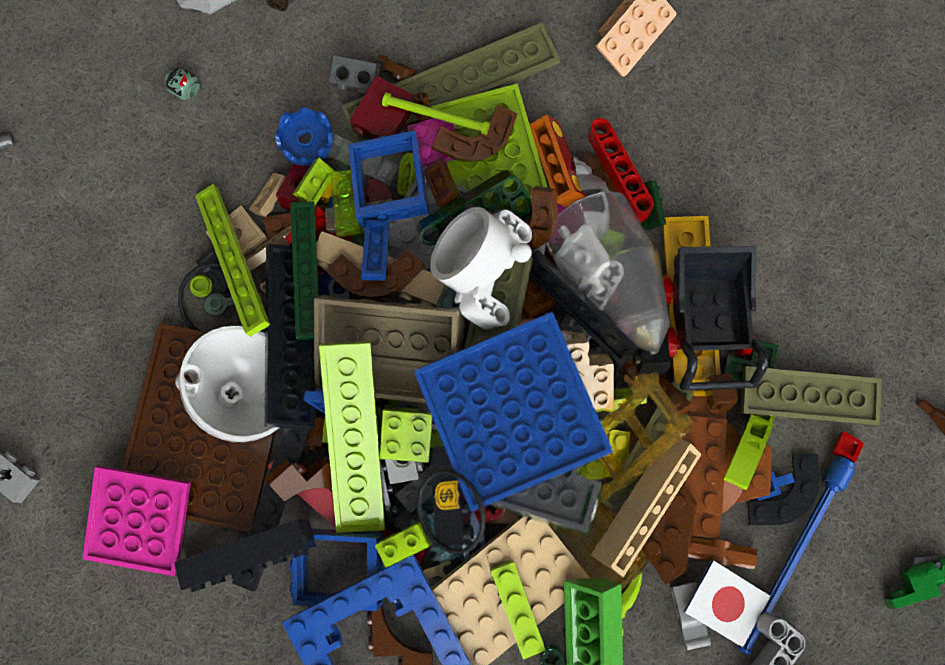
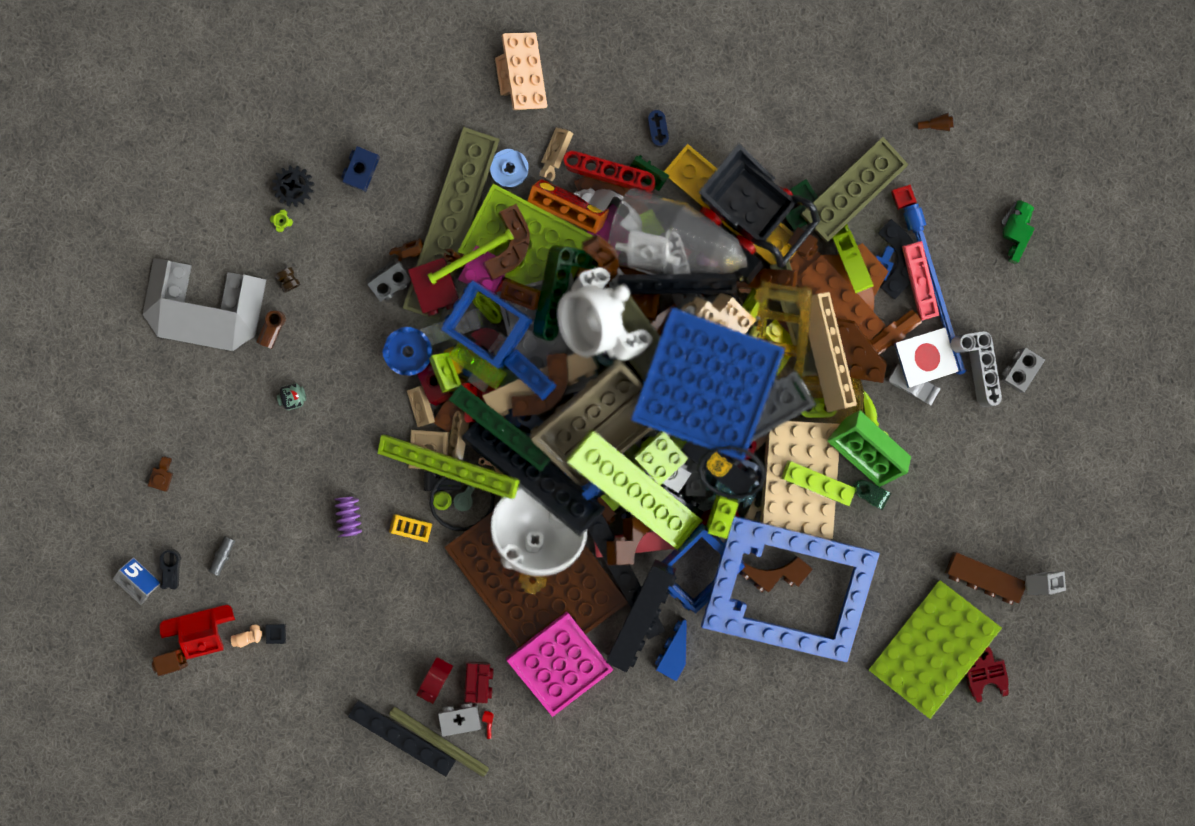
camera: 50 degrees left, 10 degrees up
(19, 40) = (160, 476): none -> reddish brown plate
(27, 420) = (434, 680): none -> dark red brick
(33, 500) = (488, 718): none -> red hand
(57, 462) = (477, 682): none -> dark red brick
(115, 217) = (348, 516): none -> medium lavender piece
(137, 267) = (394, 523): none -> yellow slope
(189, 429) = (532, 587): none -> clear yellow brick
(225, 19) = (270, 331): none -> reddish brown piece
(234, 624) = (674, 657): none -> blue slope
(543, 102) = (519, 173): none -> light blue plate
(584, 117) = (555, 152): none -> tan plate
(584, 546) = (818, 411): none -> lime plate
(700, 184) = (653, 129): none -> dark blue beam
(790, 532) = (920, 280): none -> coral plate

